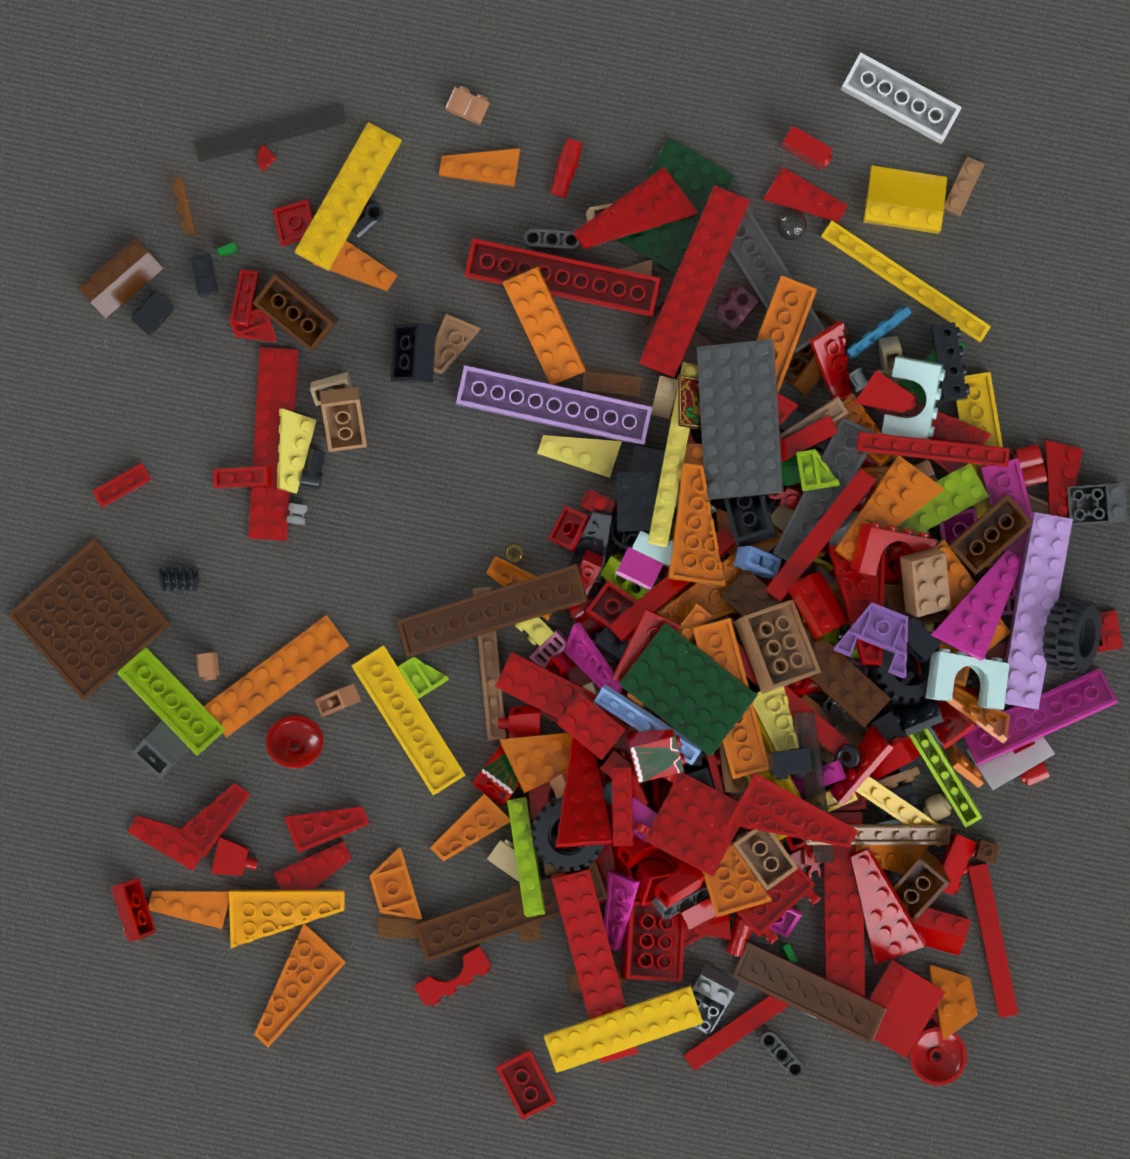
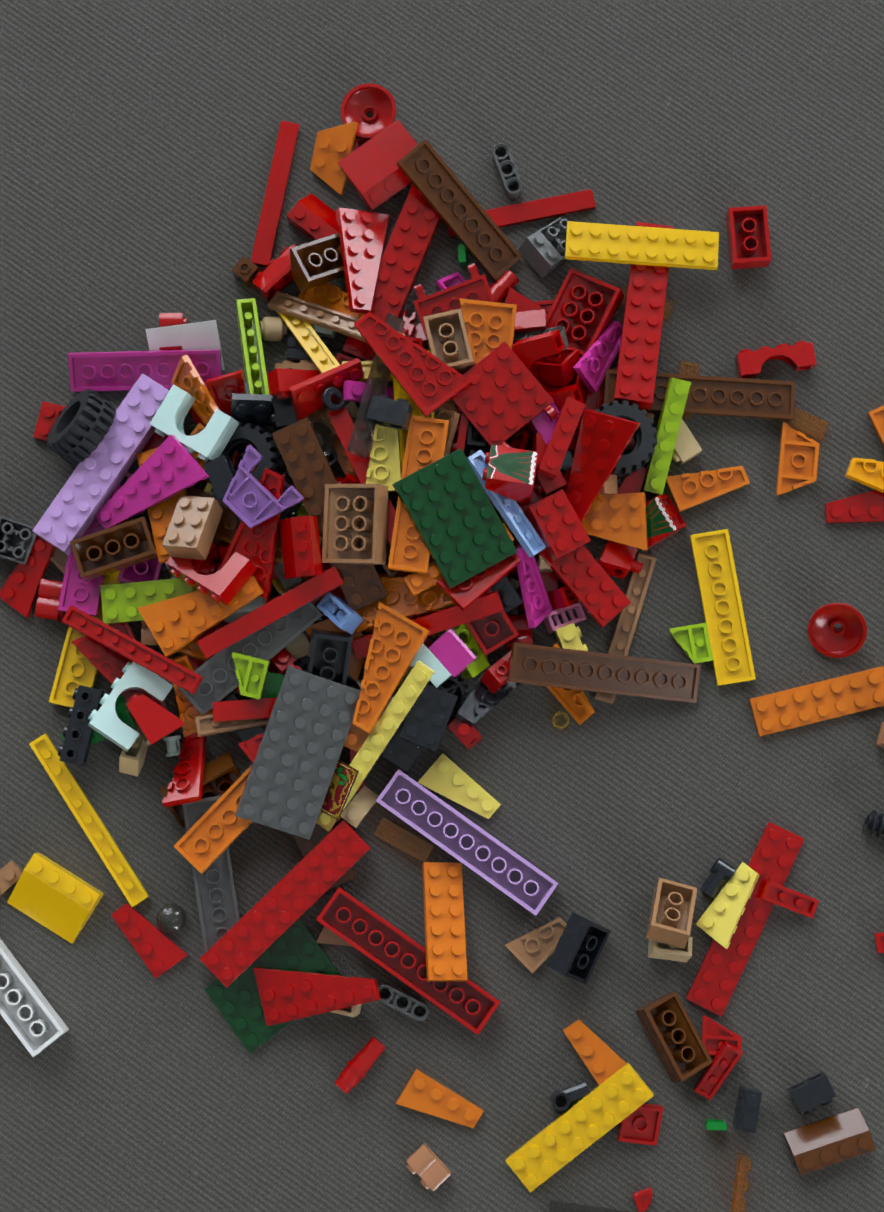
camera: 155 degrees left, 5 degrees down
(296, 509) = (747, 846): light grey wheel -> none
(320, 827) = (842, 543): red wing -> none
(337, 700) = (780, 652): nougat slope -> none
(569, 528) = (500, 721): red slope -> none
(740, 311) = (255, 857): clear pink brick -> none
(807, 148) = (124, 985): red brick -> none
(872, 337) = (127, 785): dark azure wing -> none
(964, 766) = (231, 351): orange wing -> none

